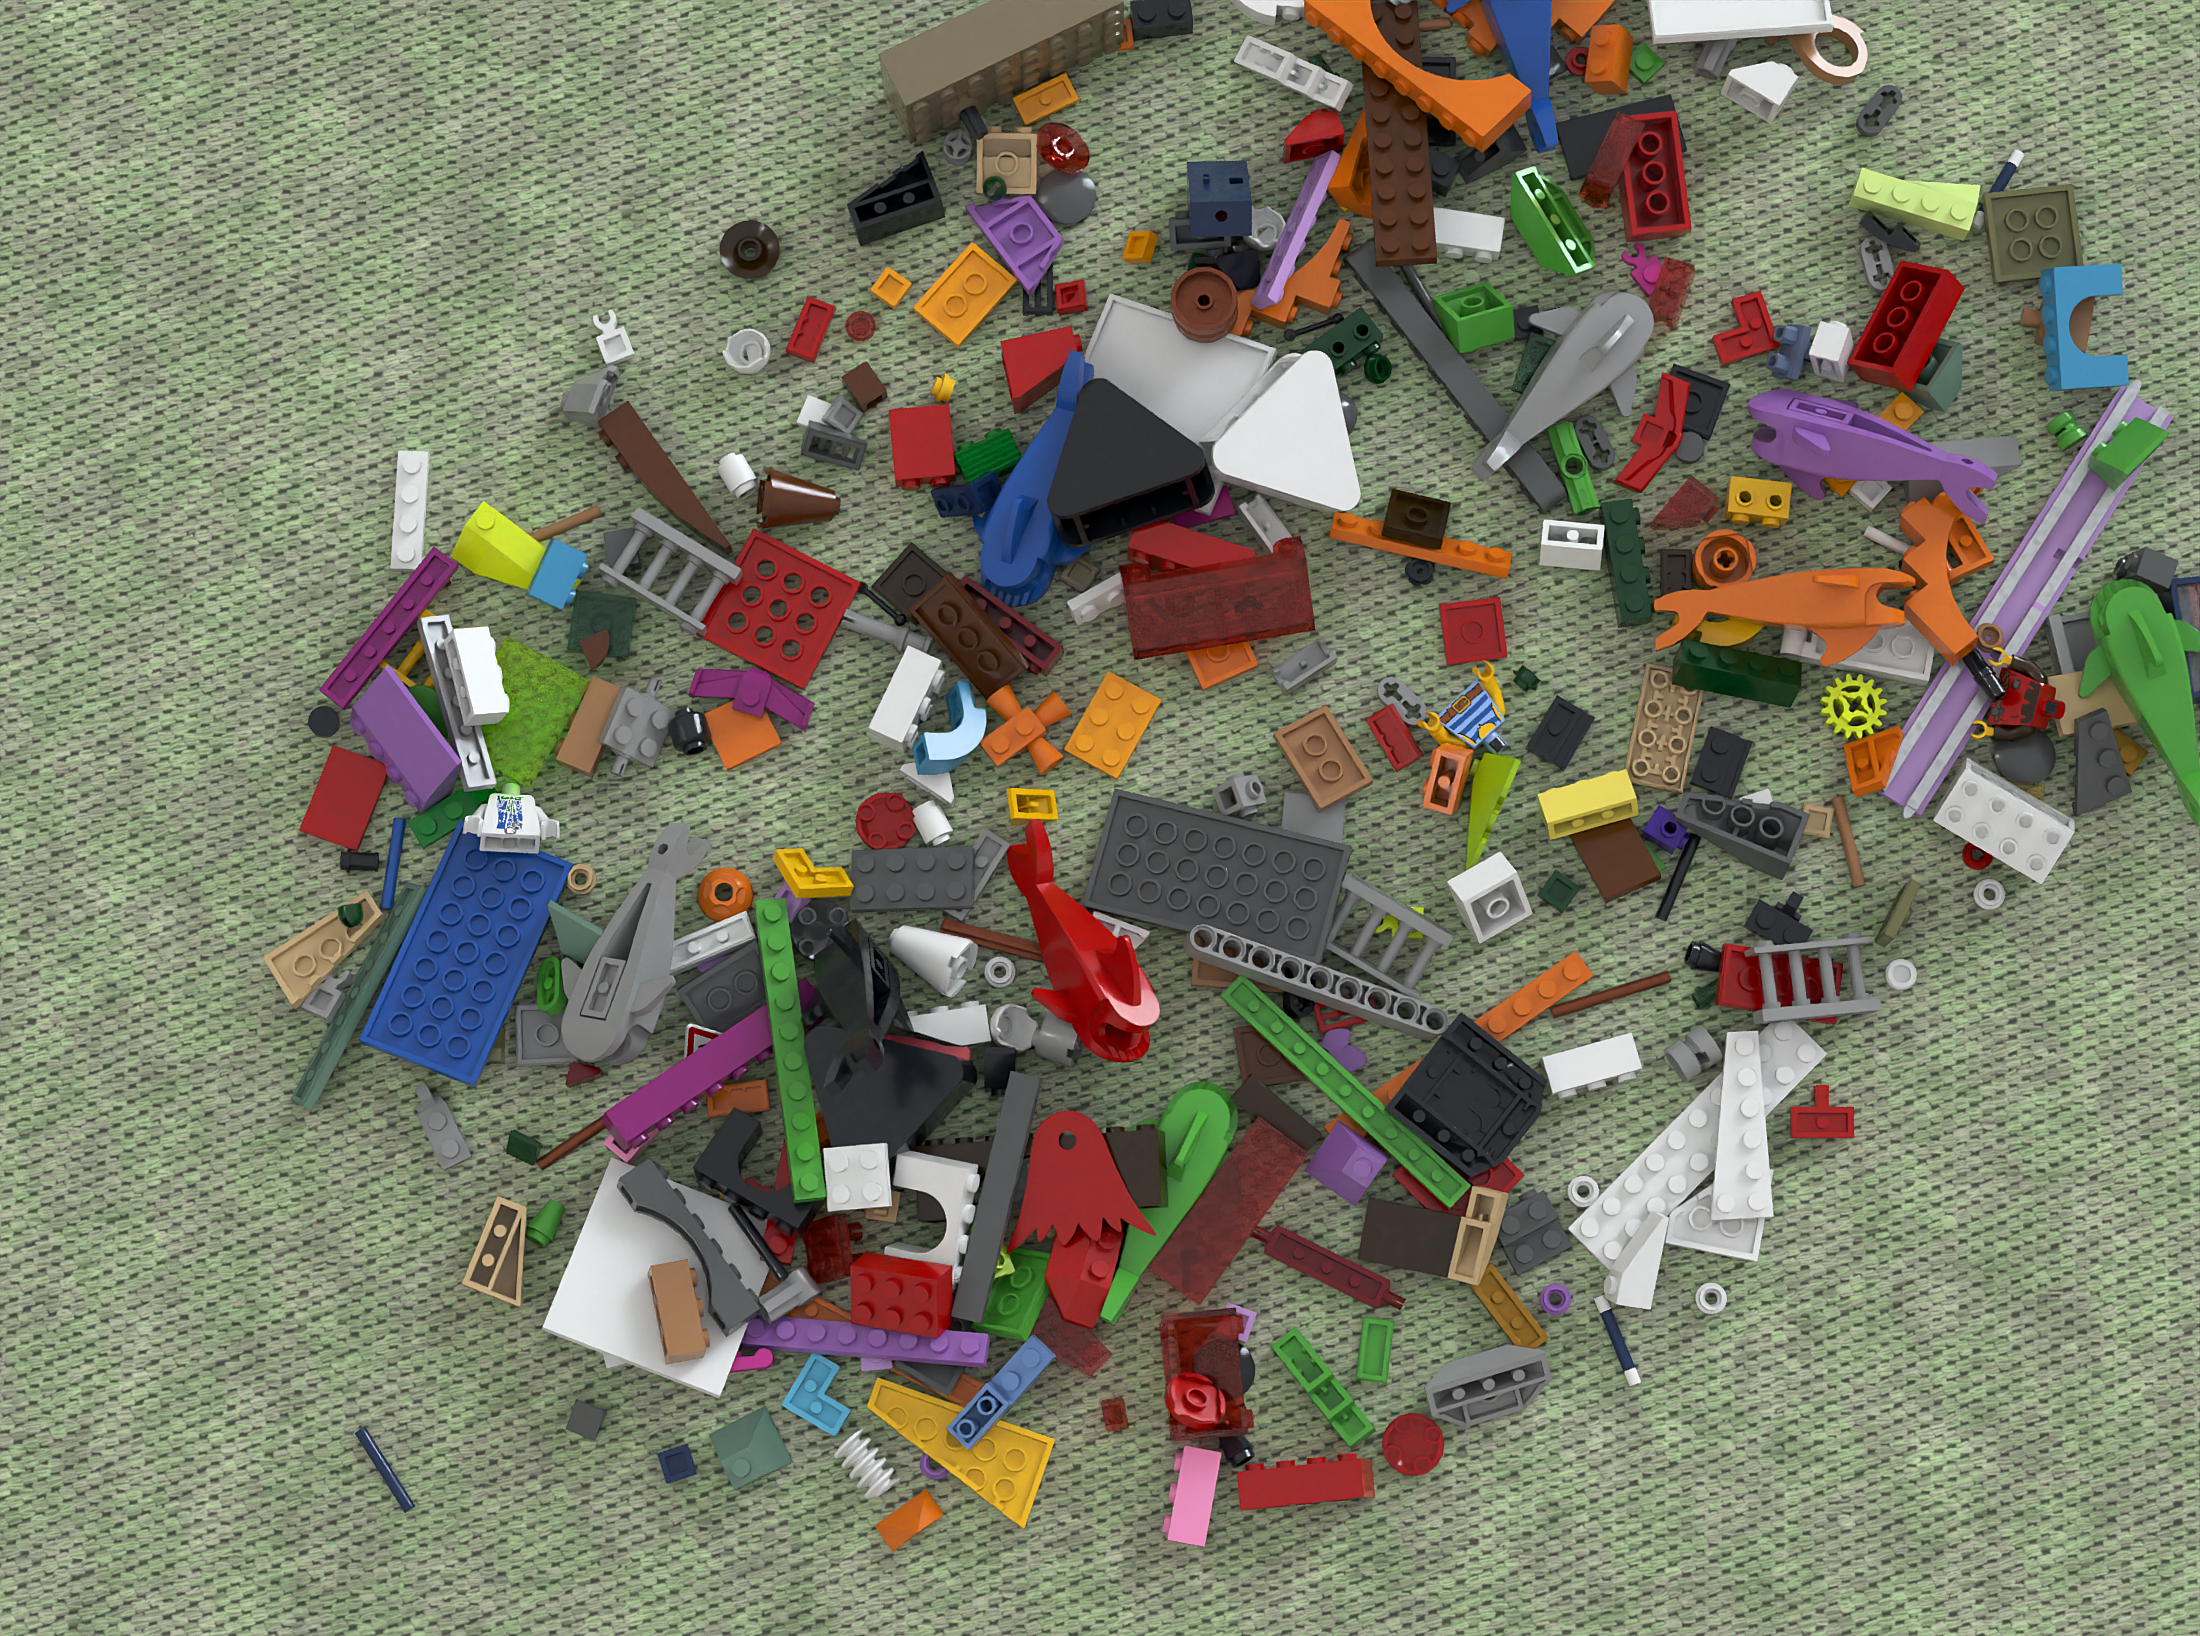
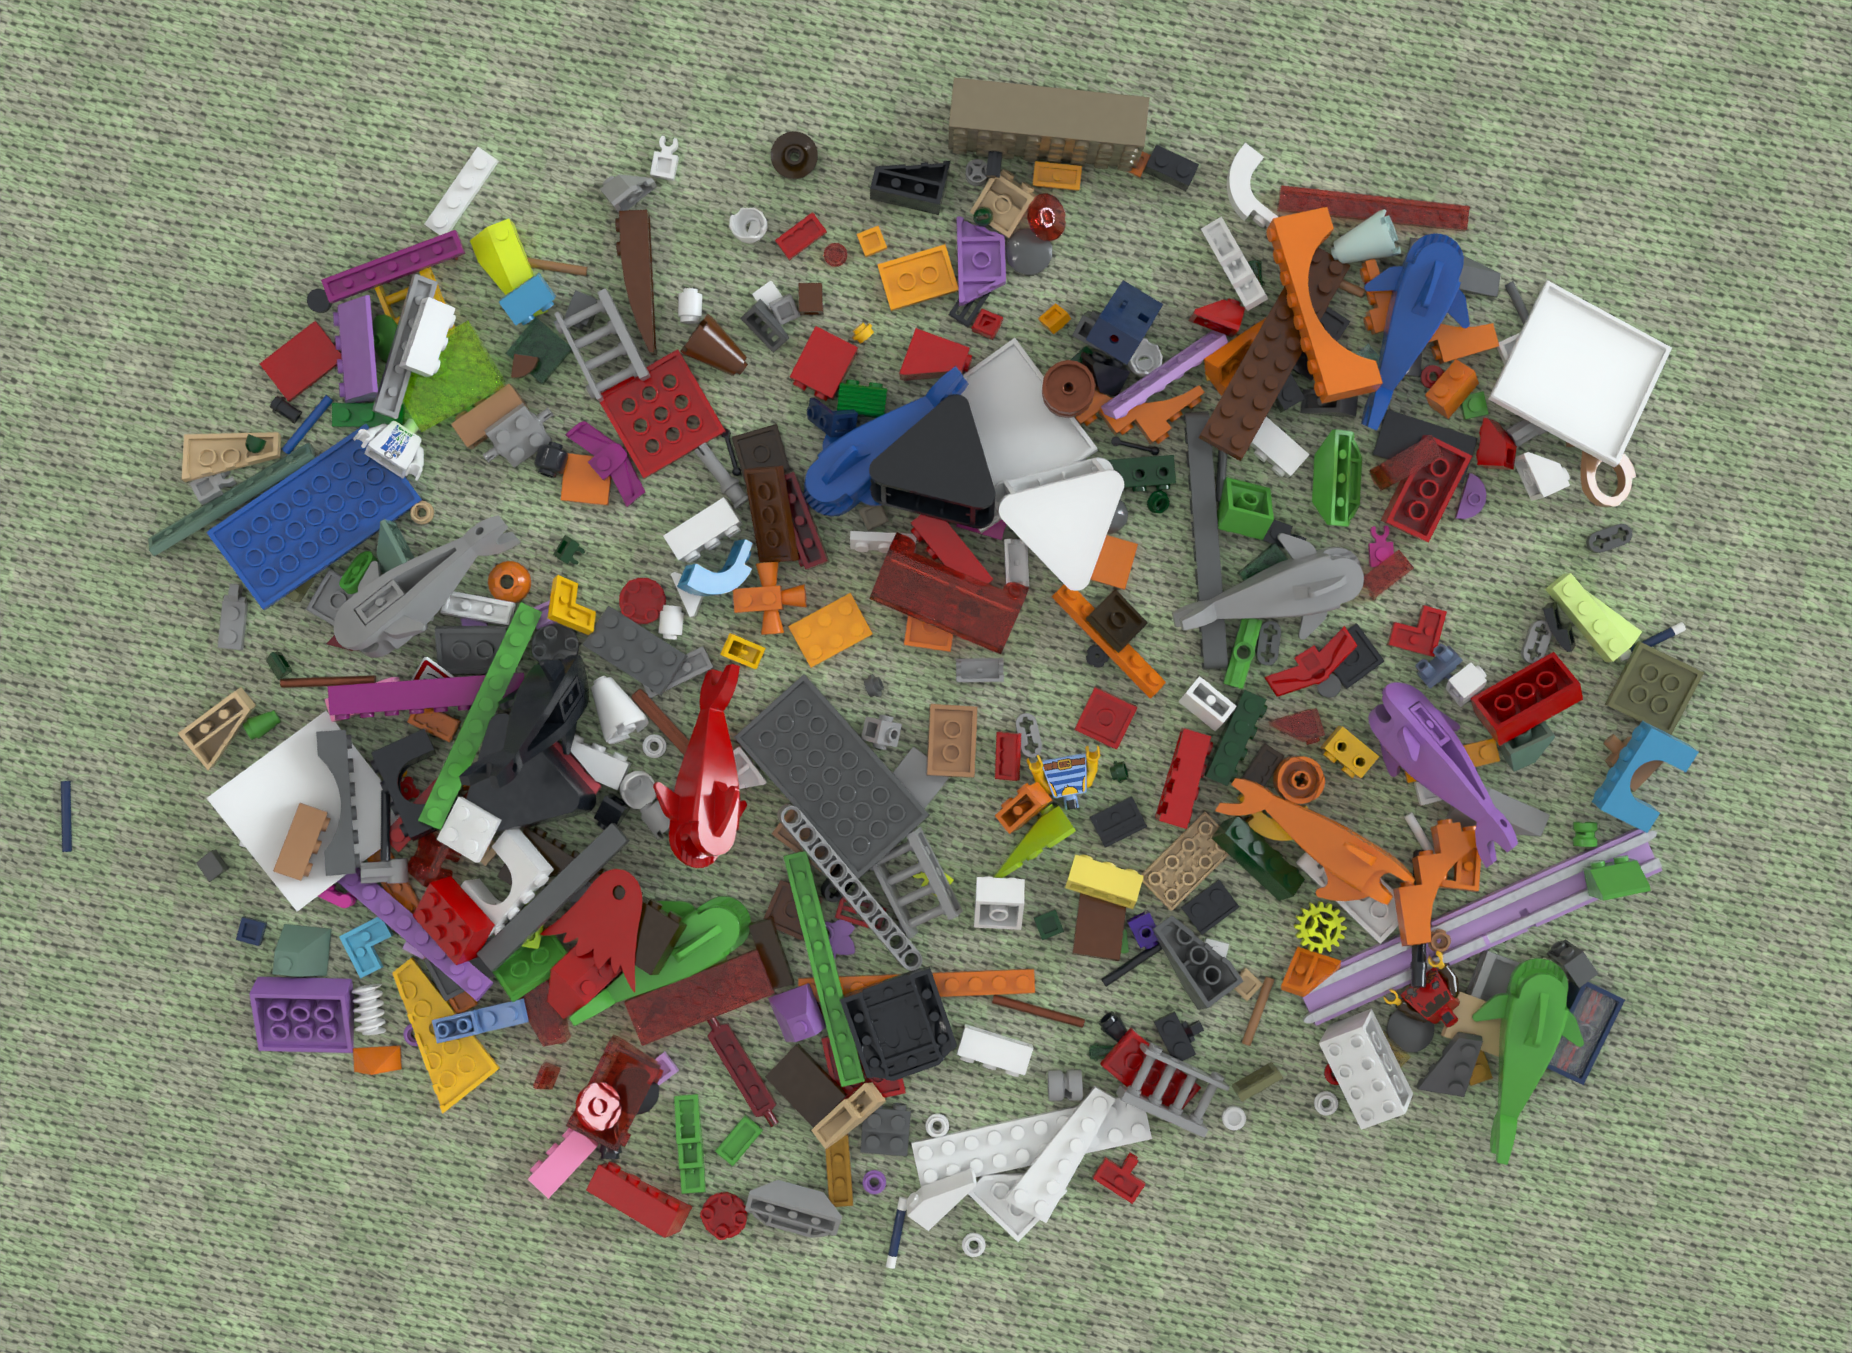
camera: 30 degrees right, 10 degrees up
(767, 817) = (567, 549): none -> dark green tile
(796, 1520) = (303, 1014): none -> medium lavender slope
(1199, 754) = (873, 686): none -> dark grey plate
(1374, 461) = (1114, 562): none -> orange tile
(1599, 640) = (1183, 778): none -> red wedge
(1695, 90) = (1495, 447): none -> red slope
(1707, 159) = (1472, 498): none -> medium lavender plate

